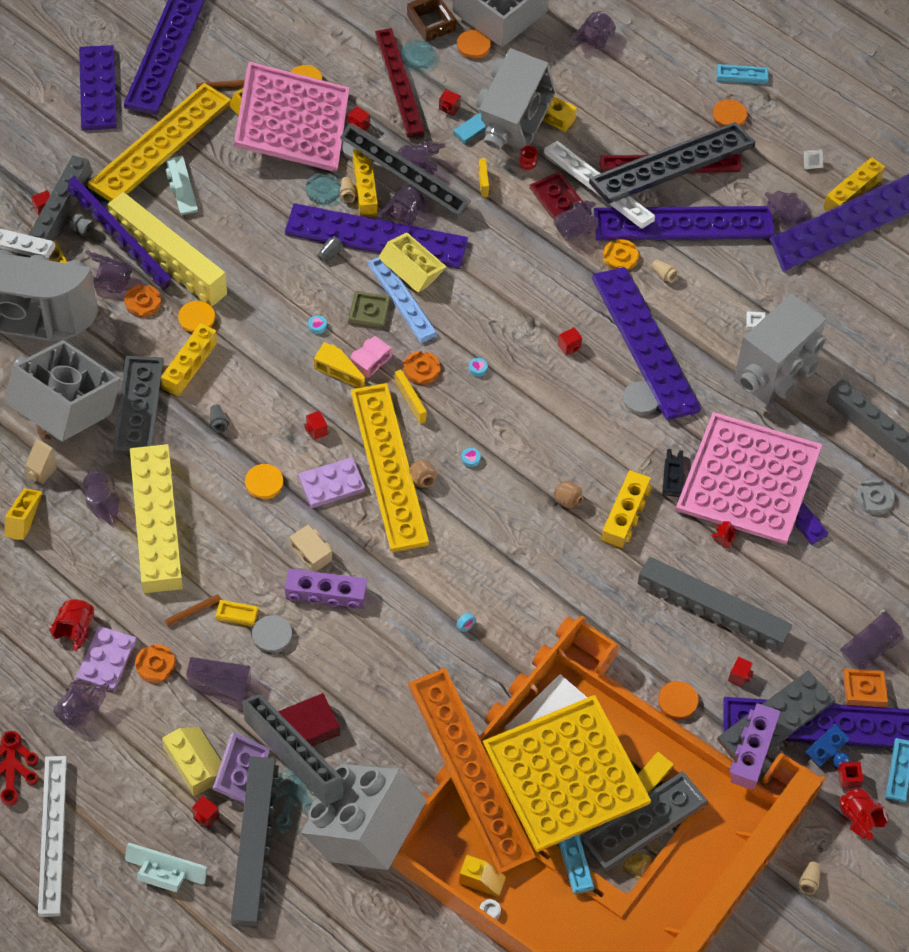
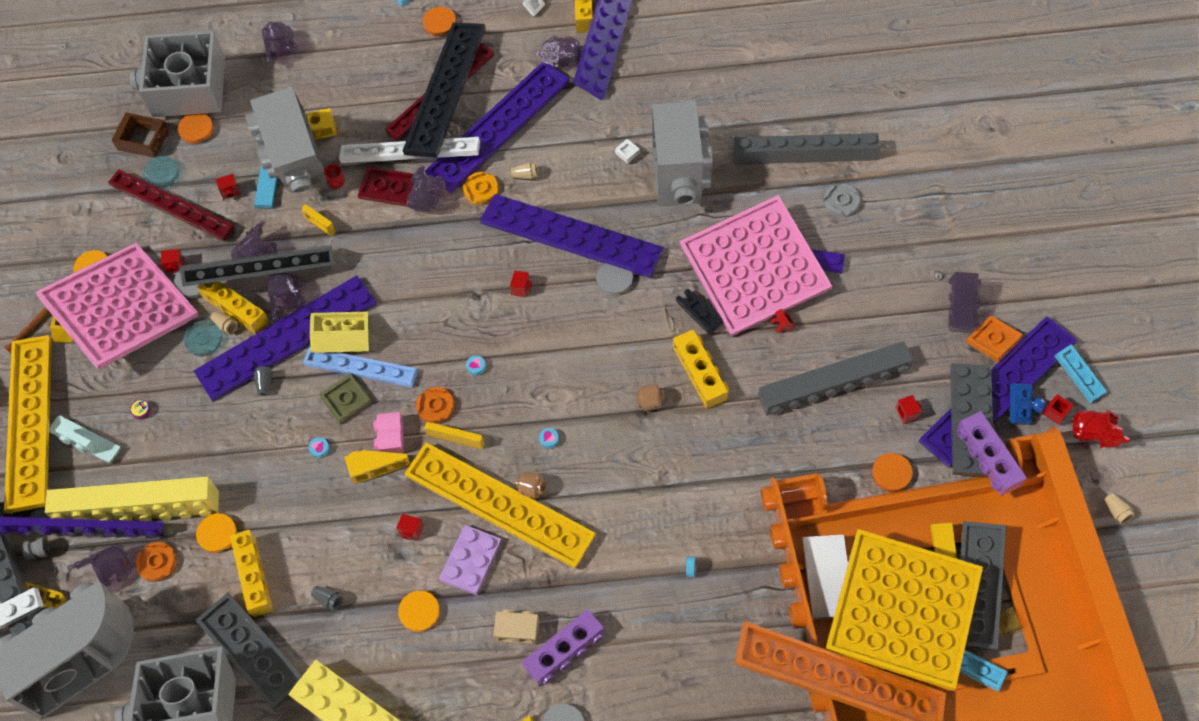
camera: 40 degrees left, 5 degrees up
(235, 198) = (140, 409): none -> tile

